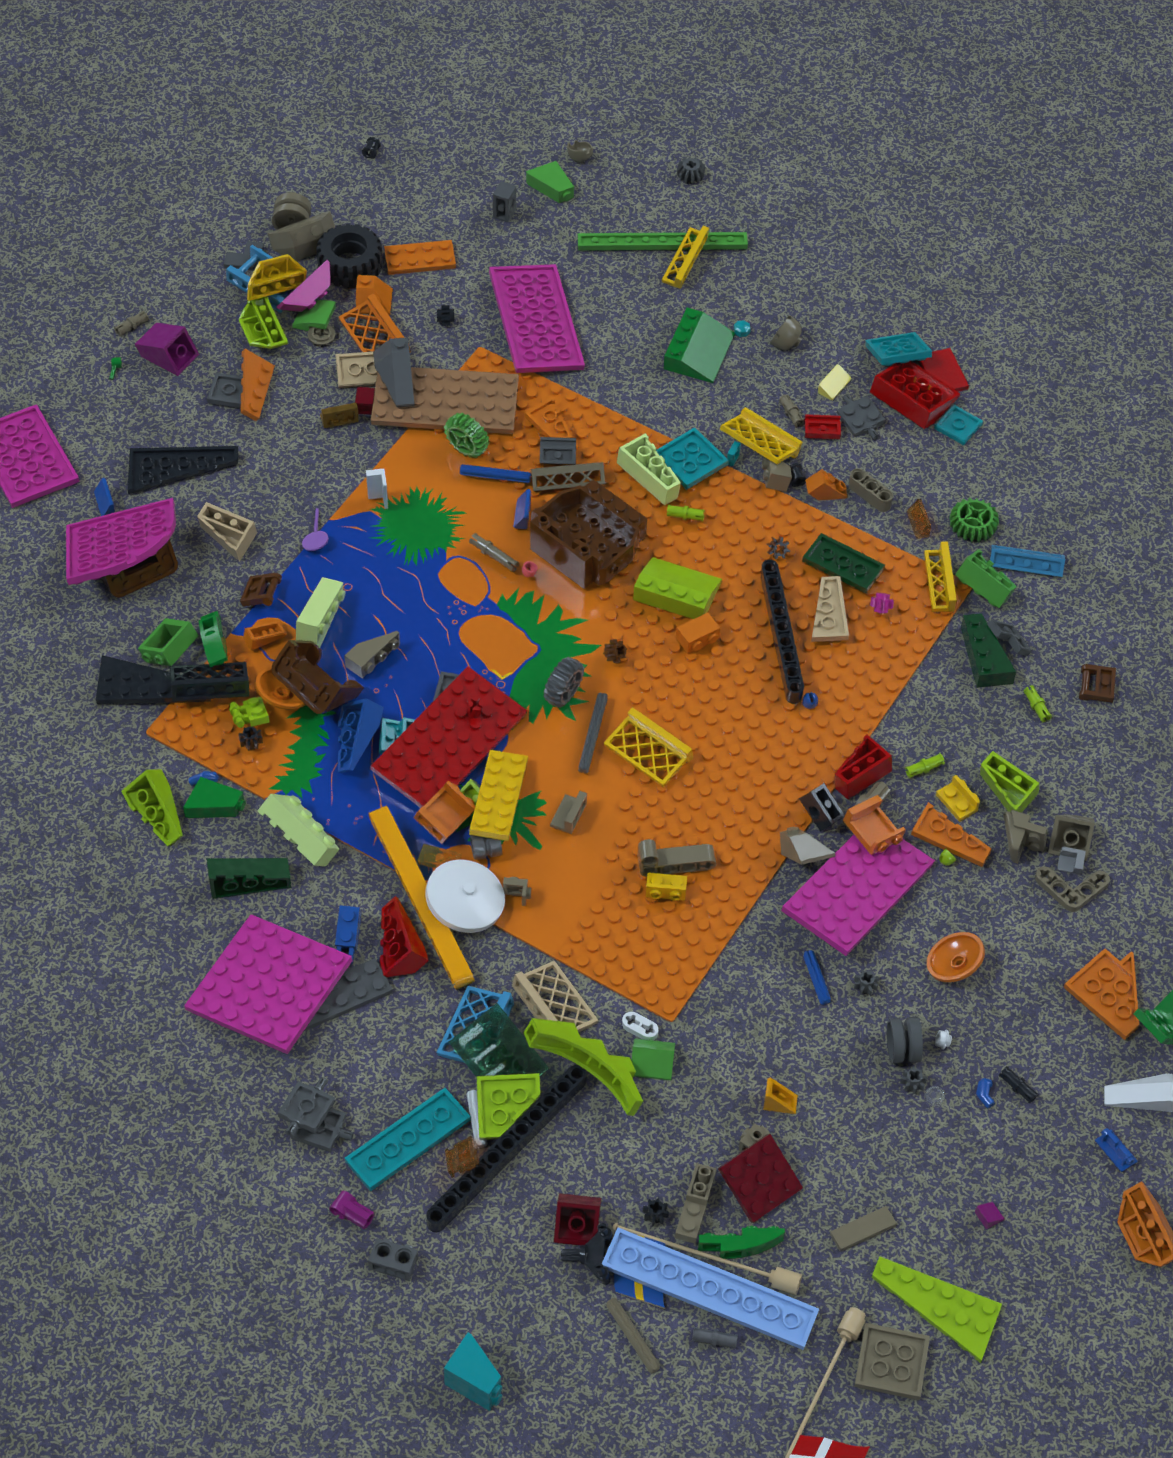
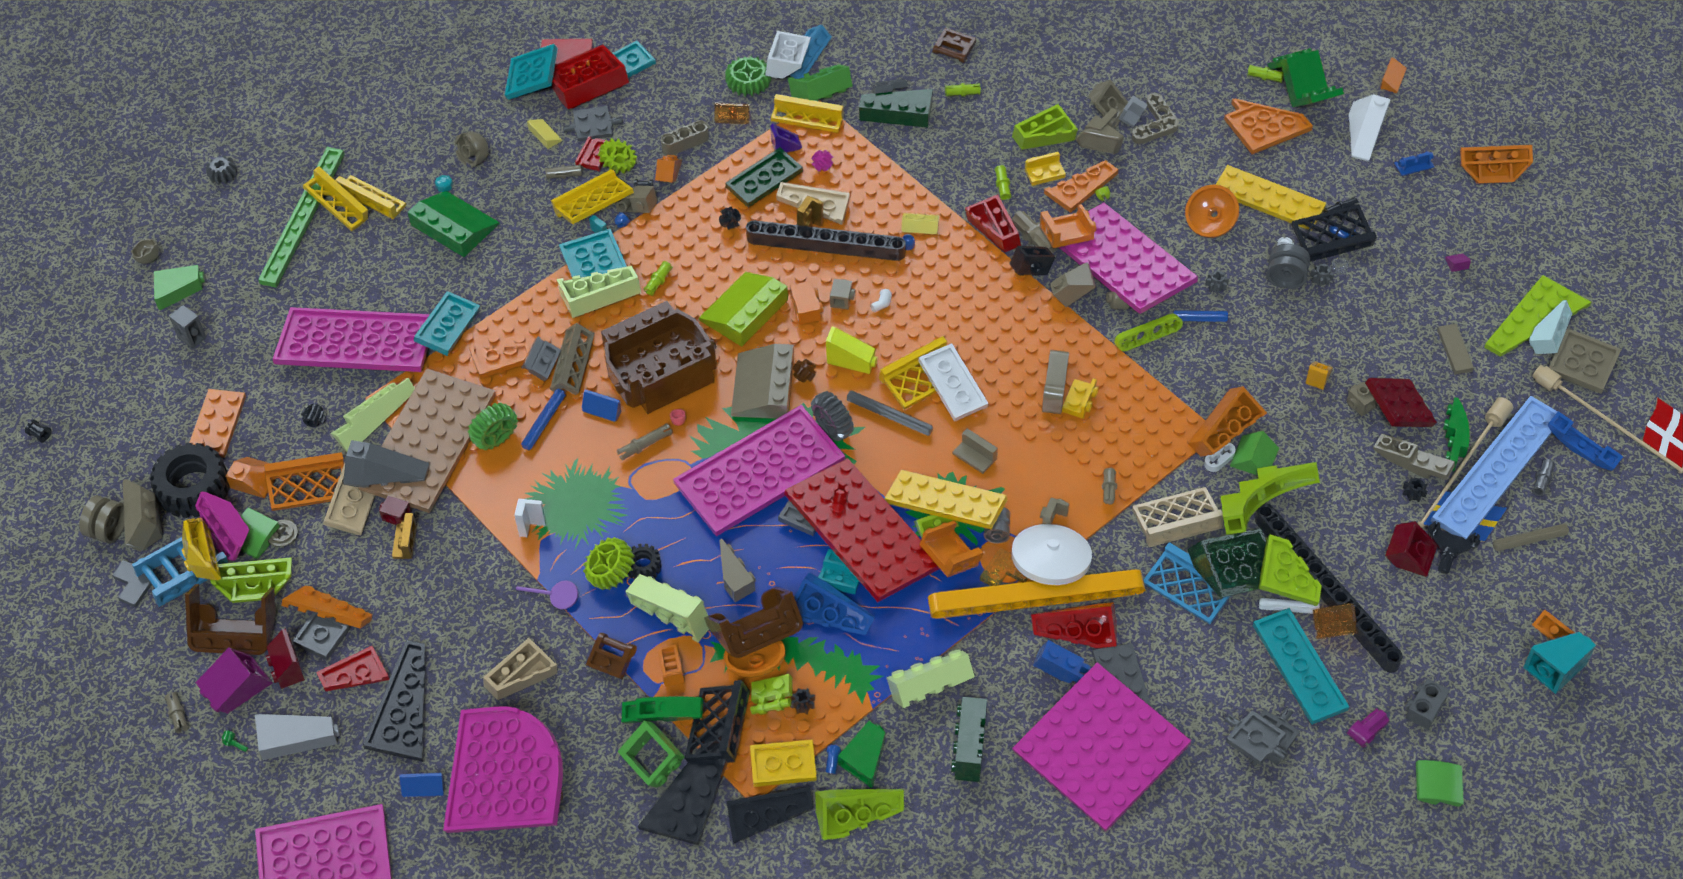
camera: 70 degrees left, 0 degrees up
(127, 399) = (293, 734): none -> light grey slope
(137, 740) = (762, 812): none -> black wing
(185, 739) = (783, 763): none -> yellow plate
(194, 374) = (284, 661): none -> dark red slope
(200, 422) = (353, 671): none -> wing
(211, 325) = (215, 635): none -> reddish brown windscreen
(306, 1284) = (1439, 782): none -> bright green slope
(347, 557) = (608, 563): none -> lime gear
(362, 577) = (645, 553): none -> black tyre
(460, 353) = (372, 413): none -> yellowish green wedge
(489, 643) = (757, 469): none -> dark pink plate
(523, 1374) = (1551, 626): none -> orange slope
(564, 931) = (1109, 485): none -> dark tan axle
(574, 374) = (446, 323): none -> teal plate
(592, 626) = (763, 382): none -> dark tan slope
(642, 772) = (953, 382): none -> white plate
(647, 678) = (849, 352): none -> neon yellow slope
(681, 1020) = (1227, 420): none -> orange wedge
(700, 278) = (371, 199): none -> yellow fence
(720, 659) = (841, 294): none -> dark tan brick
(728, 696) = (884, 300): none -> white arm
(749, 469) = (621, 220): none -> blue hinge
(774, 1371) = (1581, 445): none -> blue slope
(790, 948) = (1148, 329): none -> lime beam
(802, 604) = (810, 212): none -> pearl gold bracket
(832, 447) = (617, 155): none -> lime gear
(839, 705) = (920, 223): none -> light yellow slope
(896, 565) = (784, 139): none -> dark purple slope
(920, 1318) = (1551, 330): none -> light aqua slope
(959, 1086) = (1341, 245): none -> black fence
(1007, 1014) = (1269, 196): none -> yellow plate
(1008, 536) = (786, 54): none -> white slope

